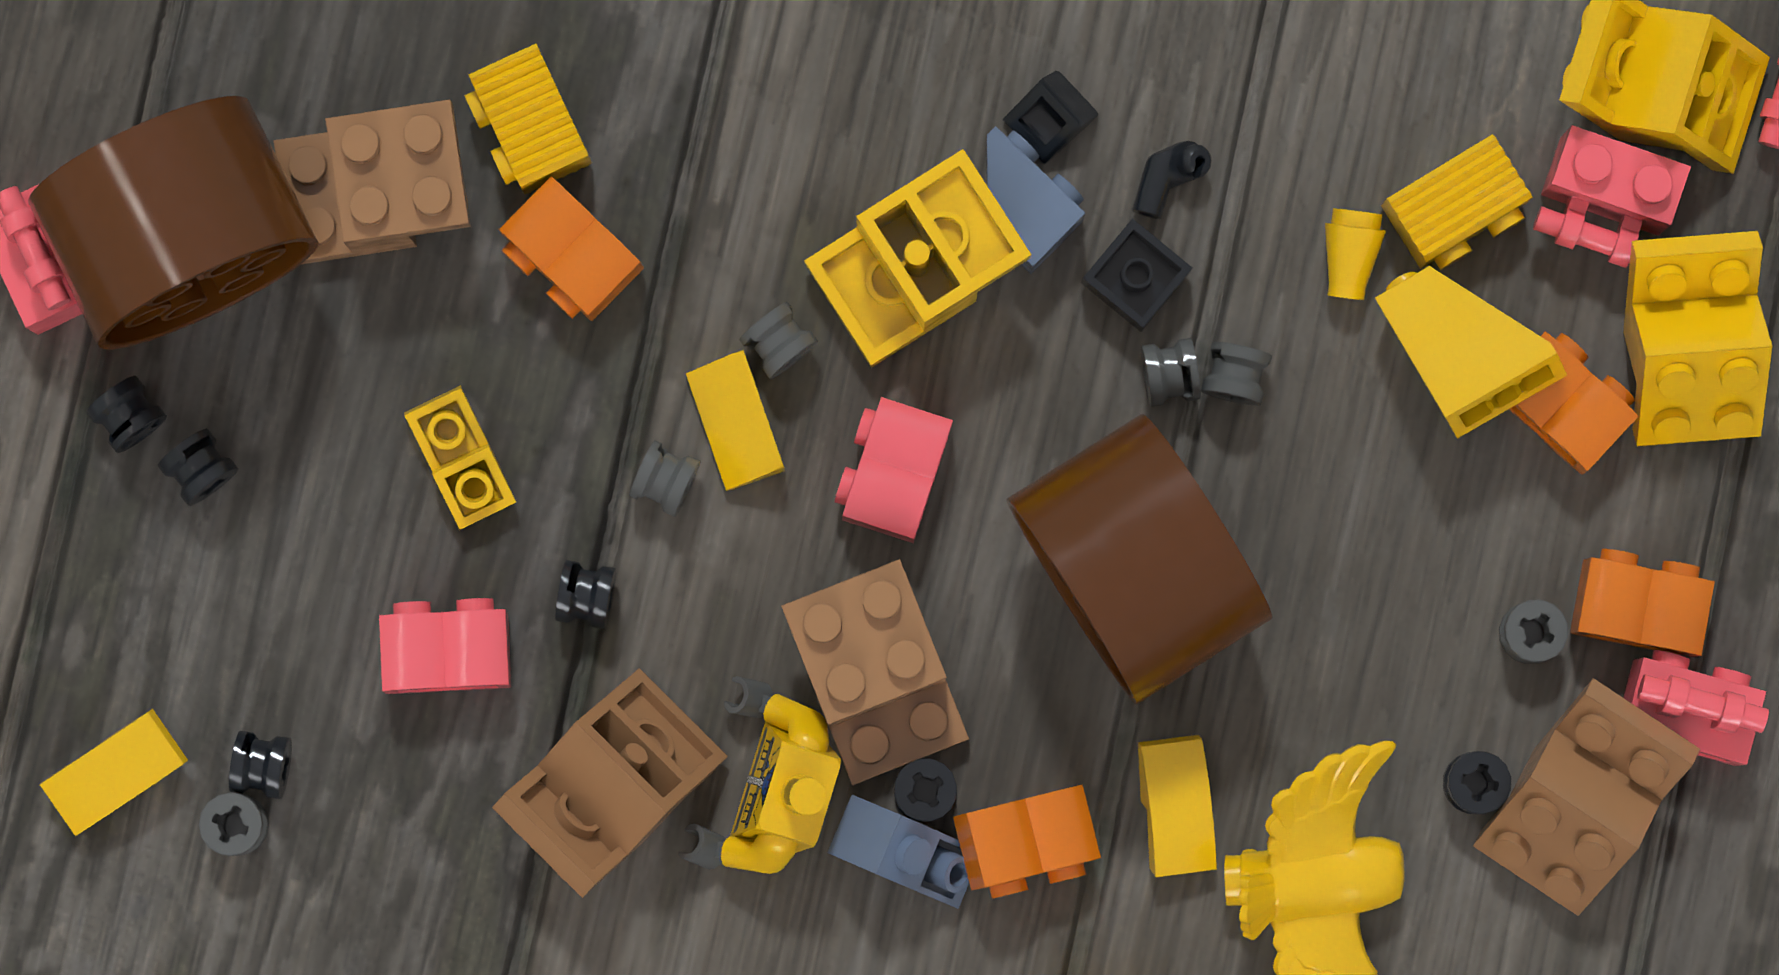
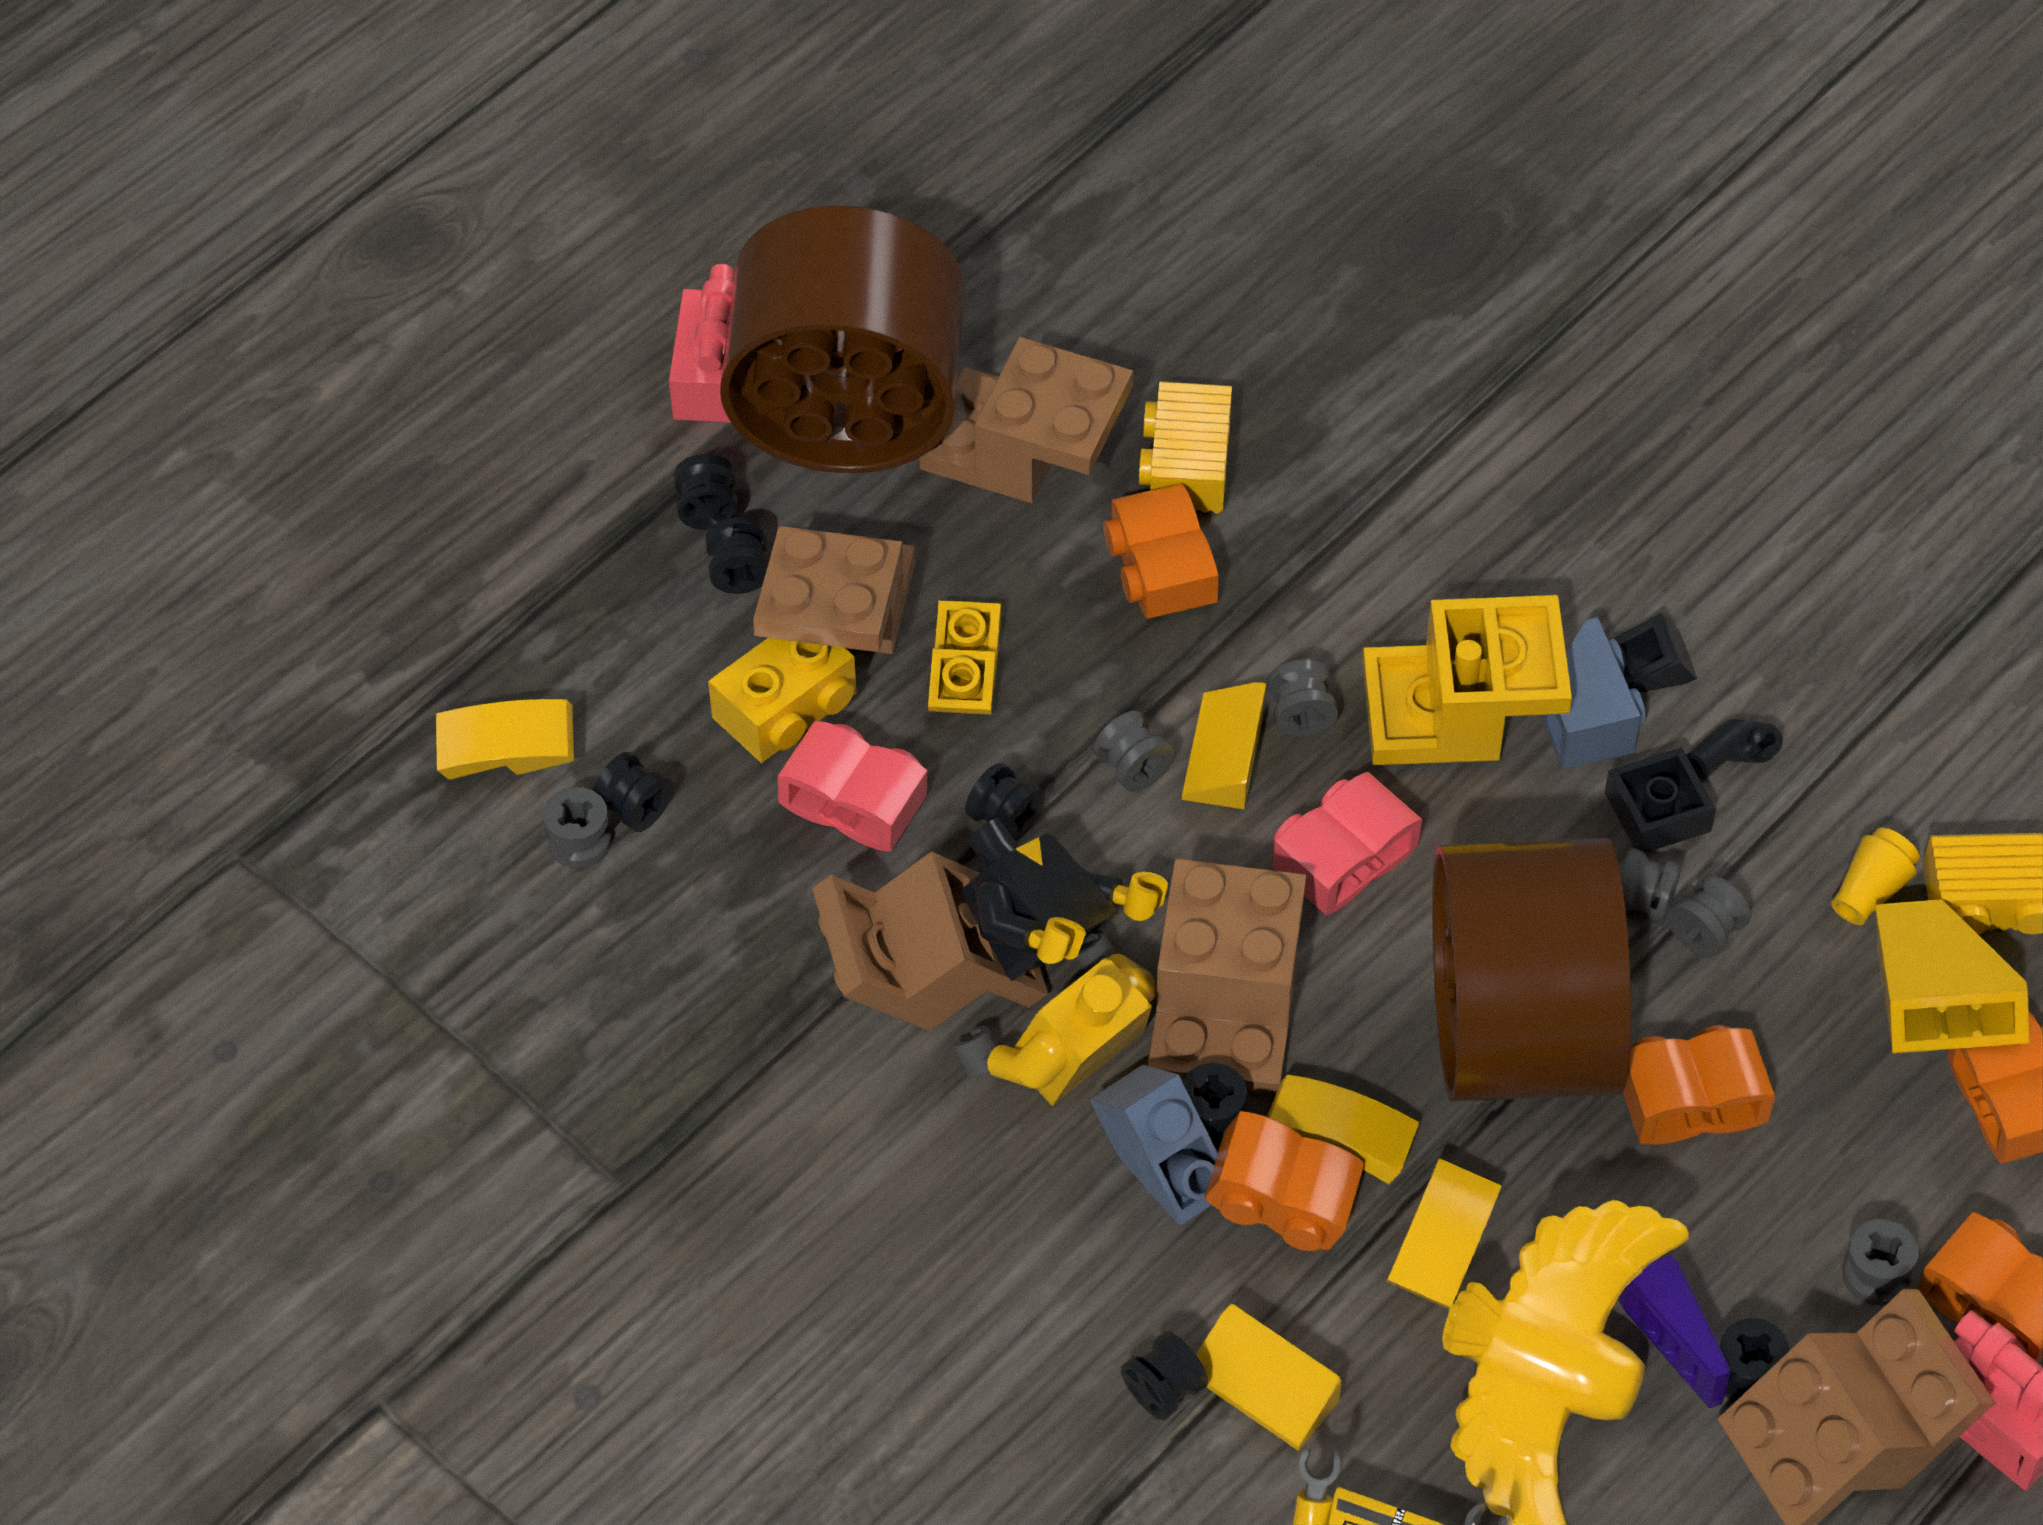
camera: 30 degrees right, 30 degrees down
(315, 470) = (834, 590): none -> medium nougat bracket
(318, 588) = (780, 691): none -> yellow brick
(687, 700) = (1041, 903): none -> black torso
(1041, 752) = (1346, 1120): none -> yellow slope
(1308, 546) = (1697, 1085): none -> orange brick
(1410, 790) = (1673, 1321): none -> dark purple slope

